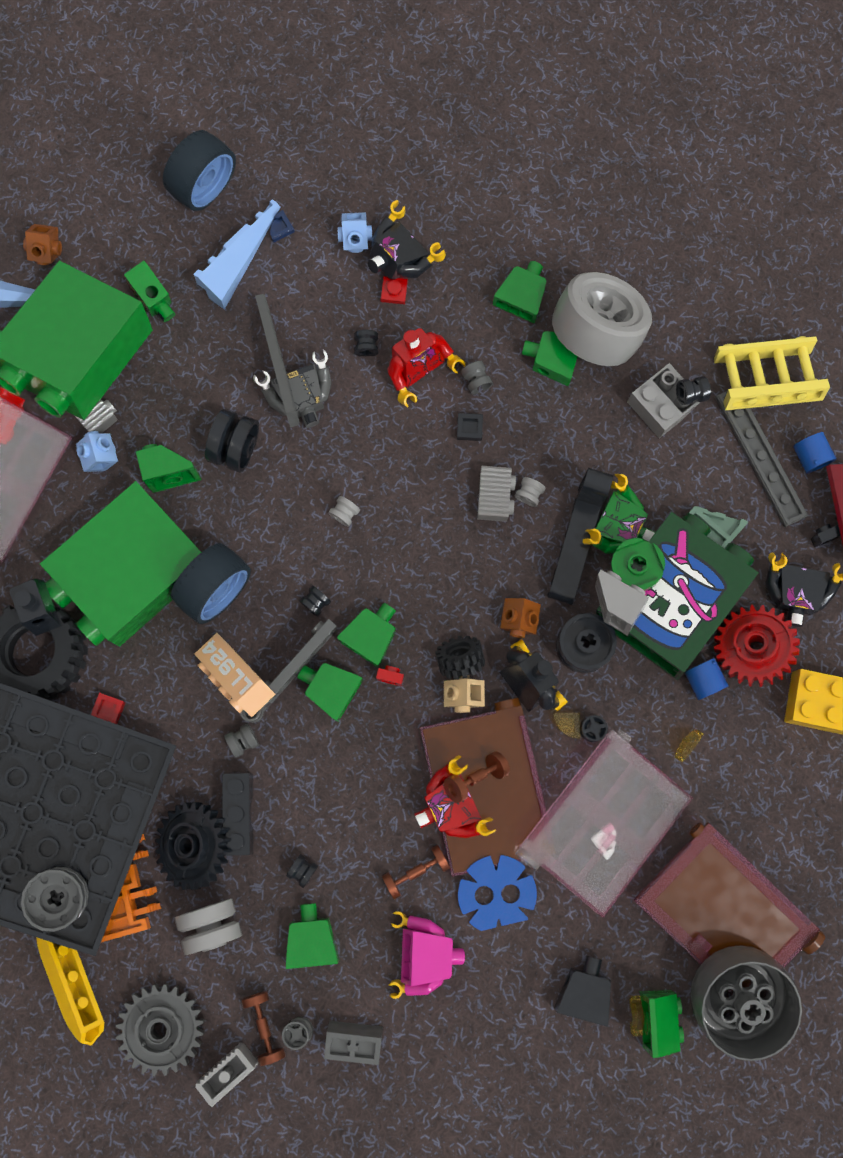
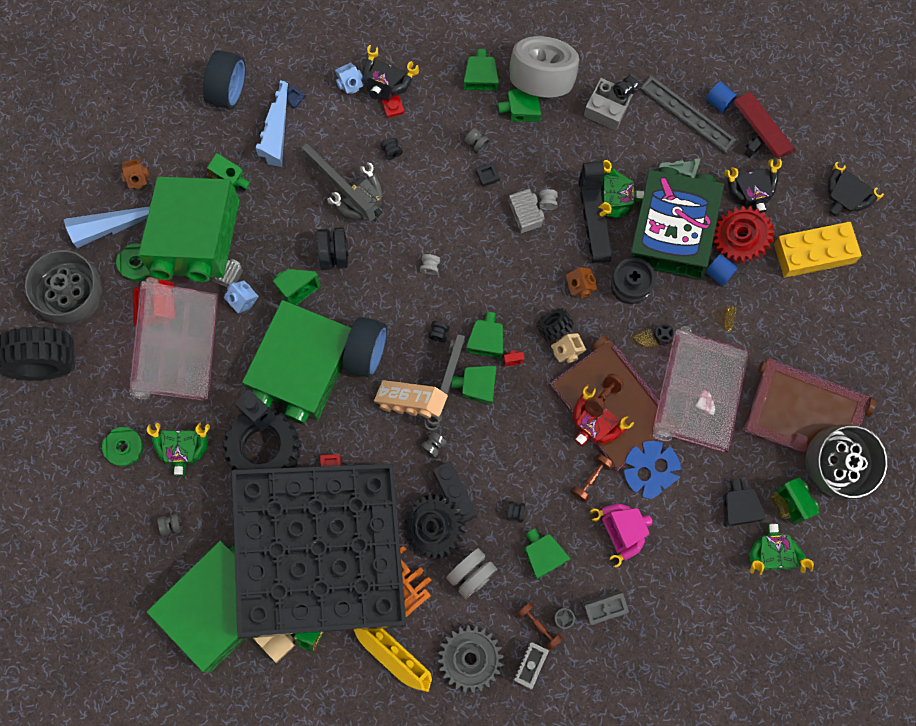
camera: 25 degrees left, 5 degrees down
(51, 915) = (365, 579): dark grey wheel -> none
(416, 357) = (431, 143): red torso -> none
(532, 679) = (609, 317): black torso -> none
(601, 1075) = (777, 553): none -> green torso
(619, 602) = (644, 238): light grey slope -> none
(643, 552) = (645, 201): green plate -> none
(777, 394) = (670, 72): light yellow fence -> none

